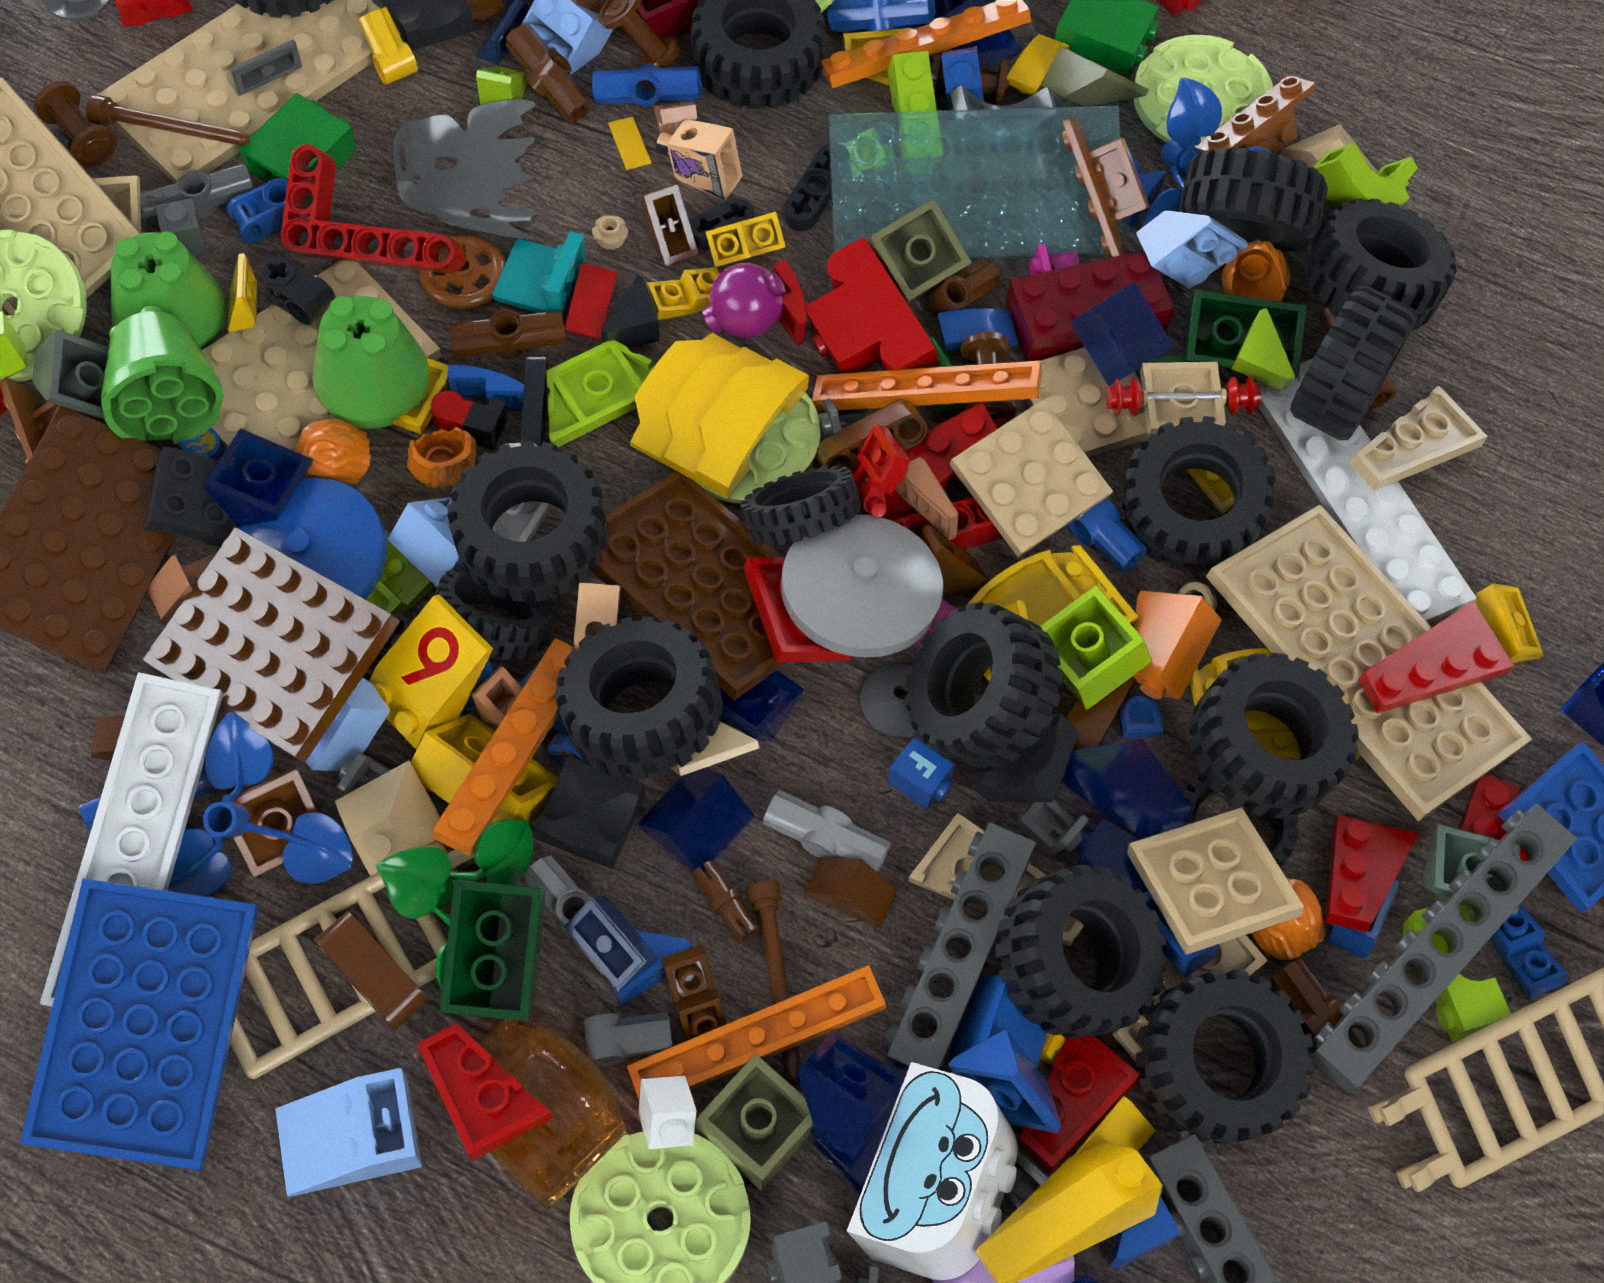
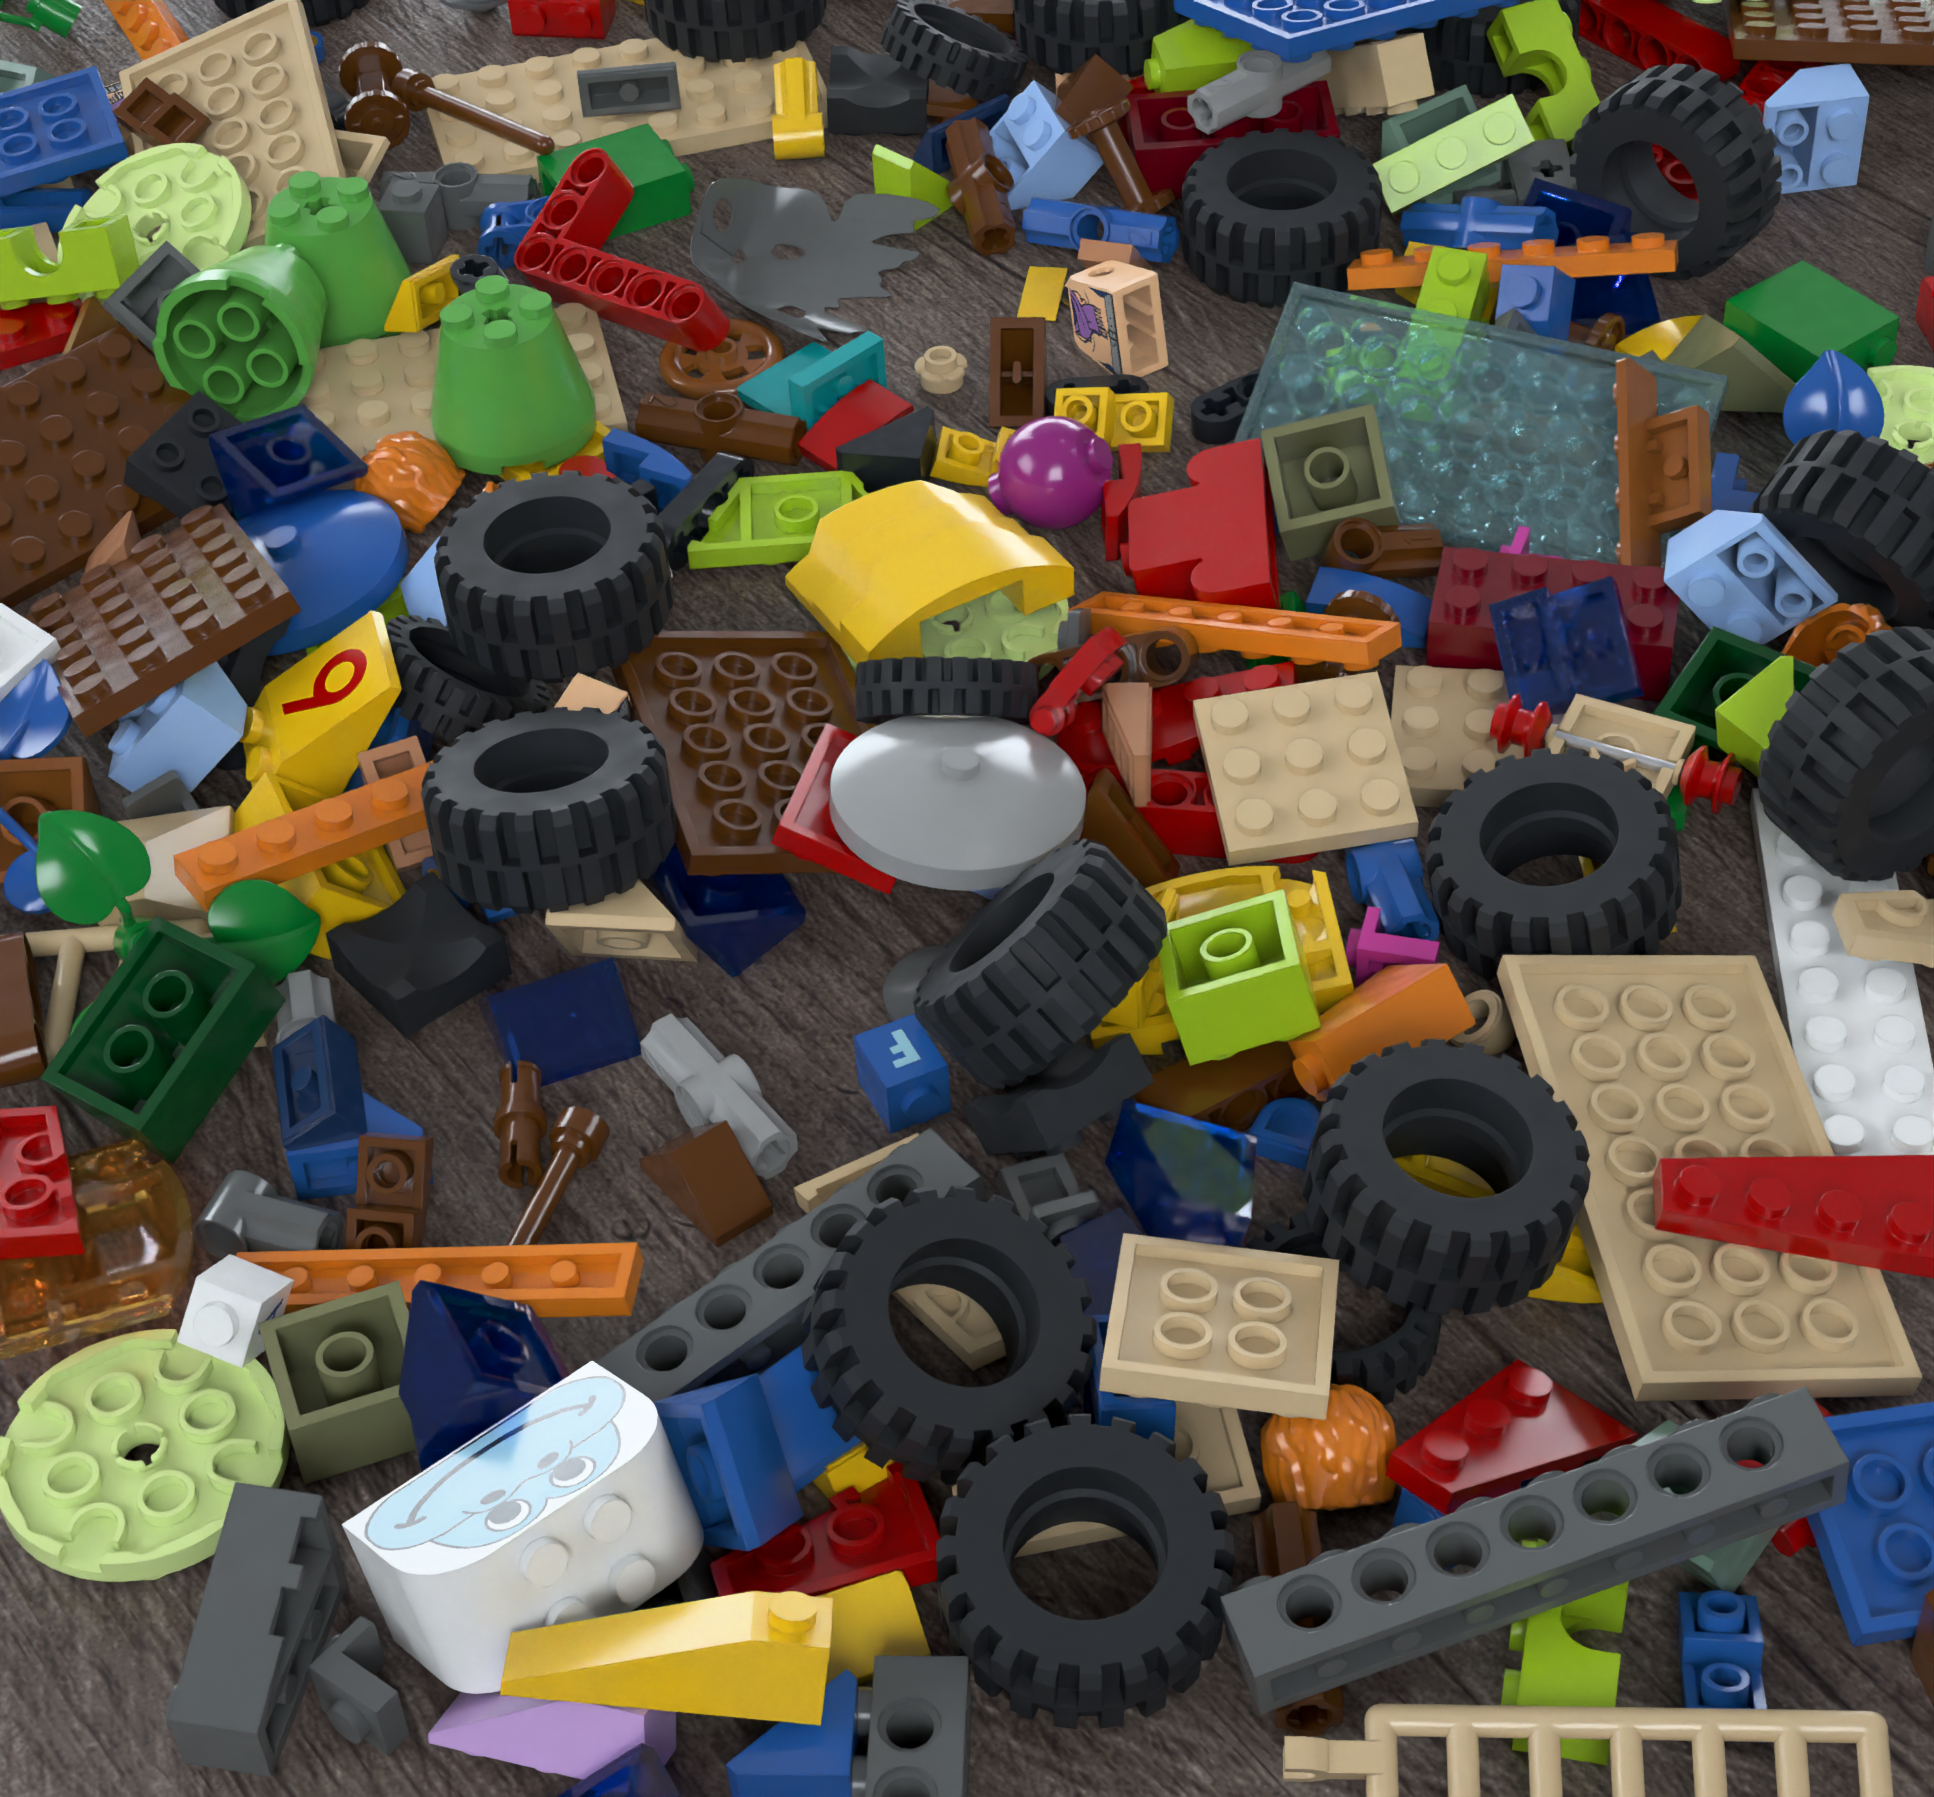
camera: 35 degrees right, 20 degrees down
(1137, 580) = (1372, 951): none -> dark pink bracket

